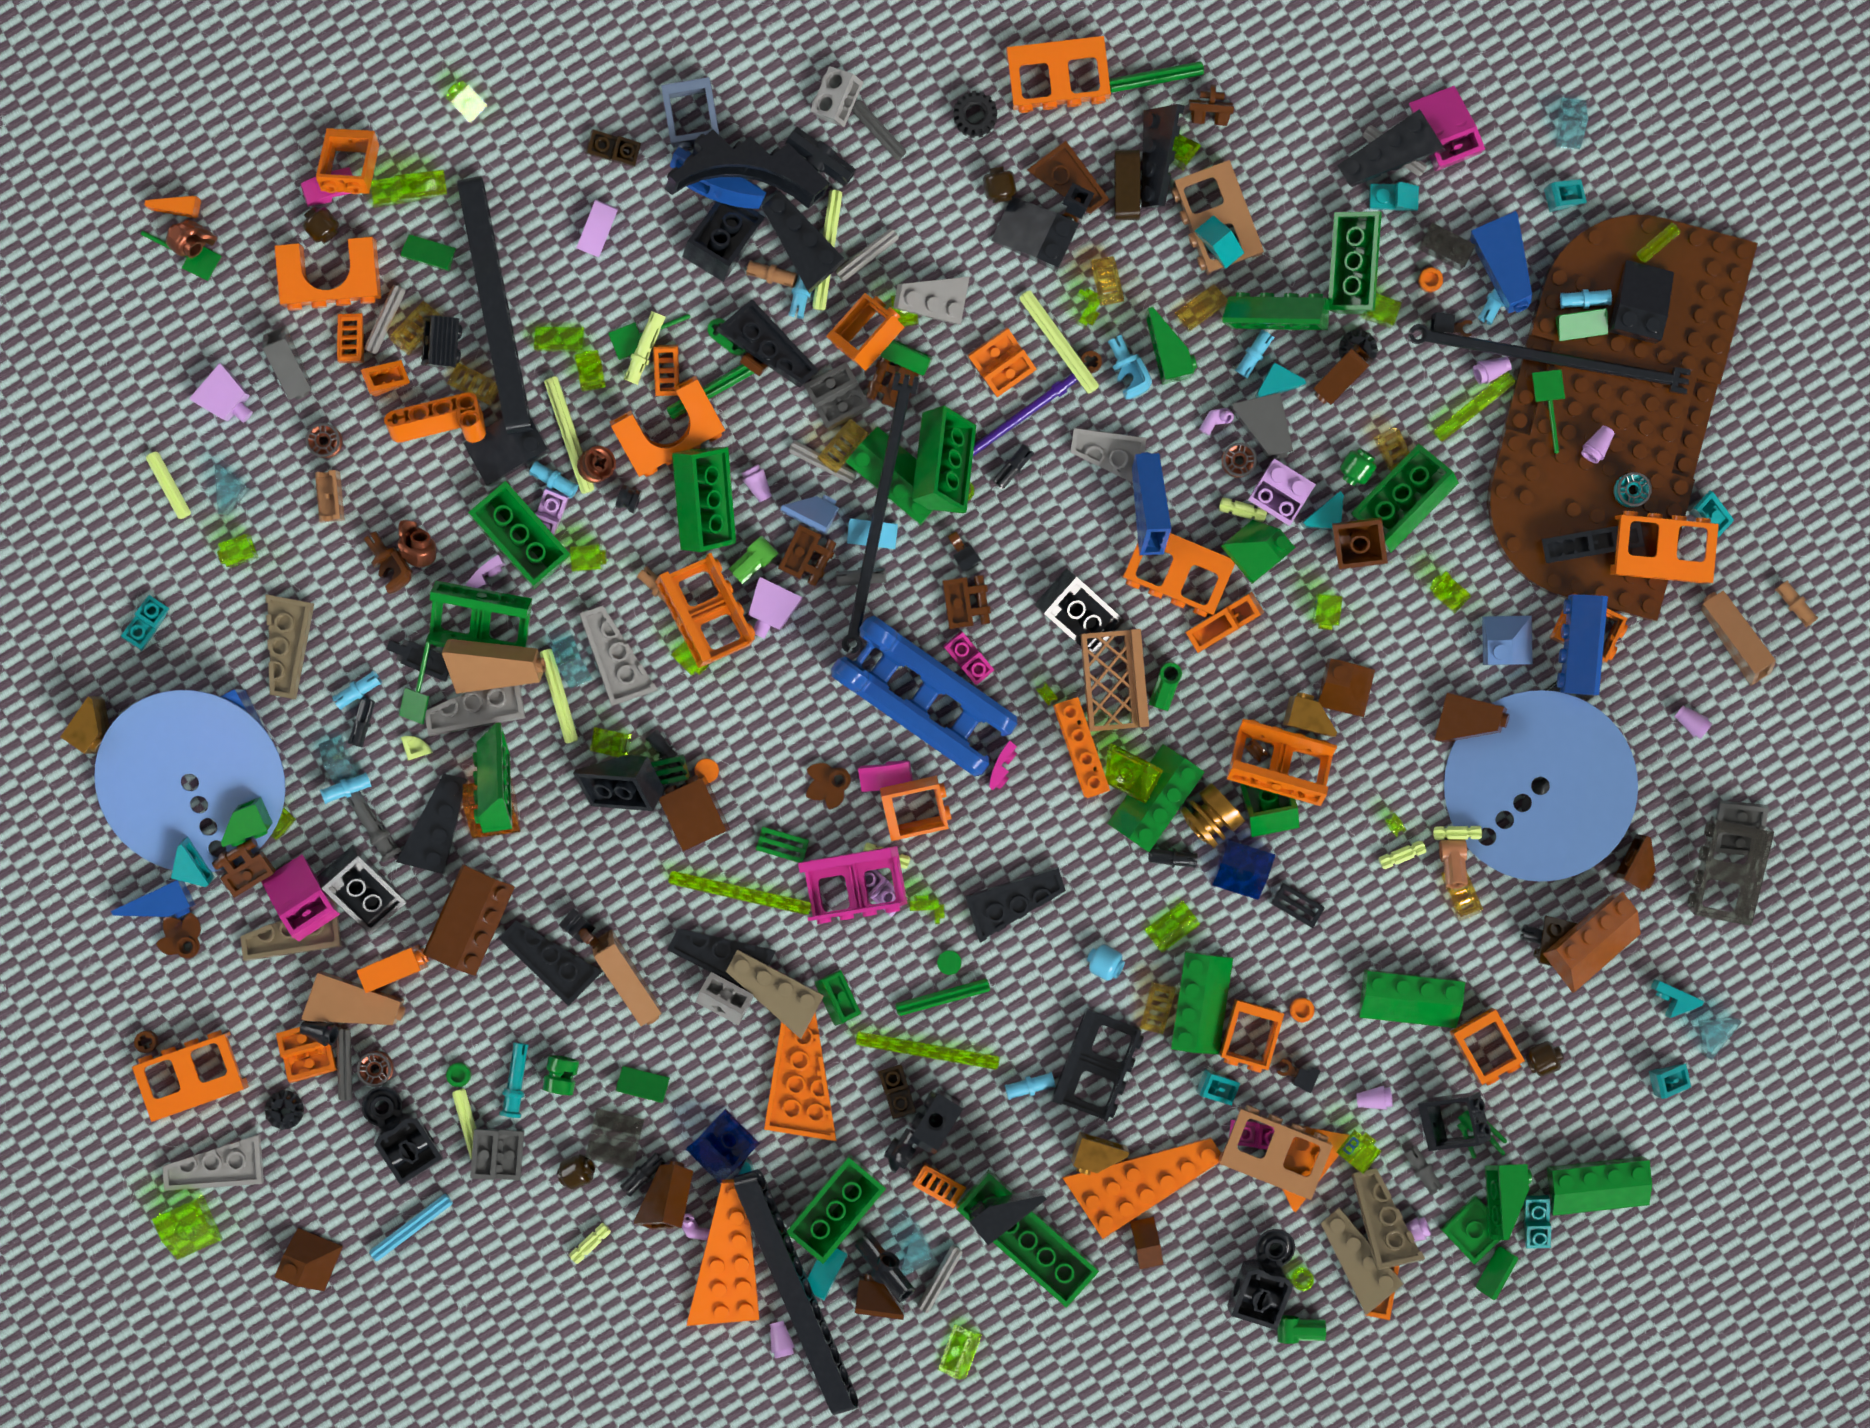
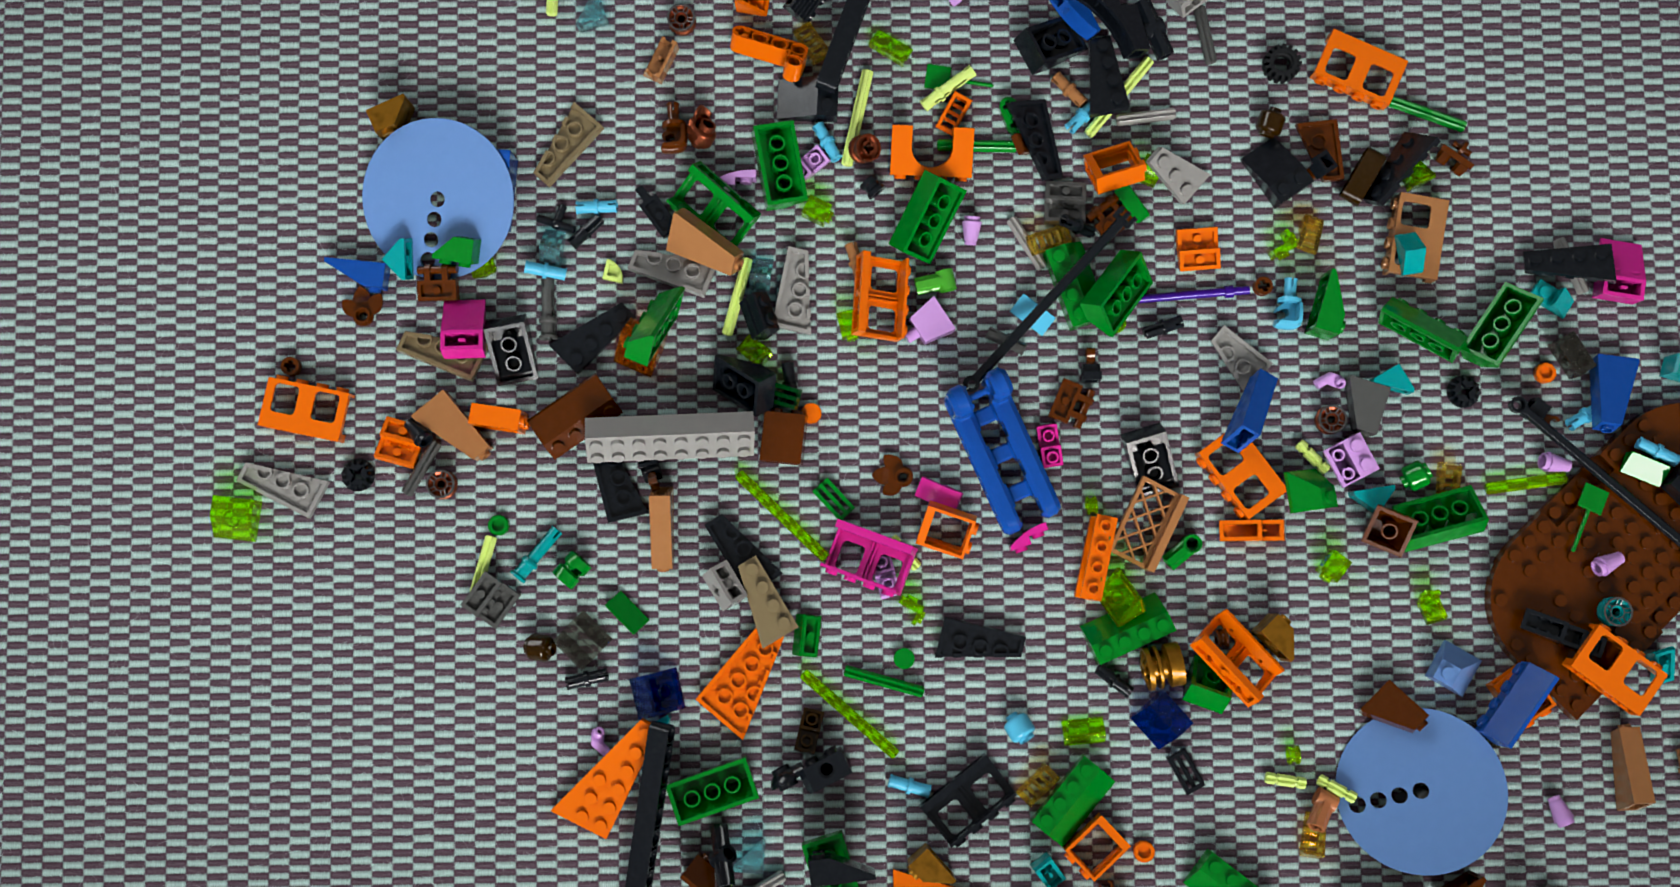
camera: 30 degrees right, 5 degrees down
(145, 623) = (477, 72): teal slope -> none
(237, 551) = (573, 59): clear neon green brick -> none
(308, 1260) = (306, 595): reddish brown slope -> none
(325, 730) = (557, 223): none -> black piece
(401, 1136) = (429, 546): black brick -> none
(410, 1227) = (395, 615): medium azure axle -> none
(413, 702) = (631, 239): green piece -> none
(578, 884) = (669, 437): none -> light grey brick
(589, 1243) = (517, 706): yellowish green axle -> none
(590, 370) = (900, 80): clear neon green bracket -> none
(593, 704) = (759, 315): none -> black brick
(666, 1198) = (593, 706): reddish brown slope -> none
(780, 1340) = (612, 865): lavender cone -> none
(800, 552) = (973, 296): reddish brown plate -> none
(813, 512) = (998, 273): medium blue slope -> none
(824, 1275) = (673, 835): teal slope -> none
(863, 415) = (1077, 226): none -> black axle
(917, 1182) = (789, 804): orange slope -> none
(1059, 342) = (1248, 258): yellowish green axle -> none
(1201, 308) = (1365, 295): clear yellow slope -> none
(1254, 353) = (1385, 350): medium azure pin -> none
(1342, 375) = (1444, 401): reddish brown slope -> none
(1345, 687) = (1315, 630): reddish brown slope -> none
(1385, 311) = (1498, 377): clear neon green brick -> none

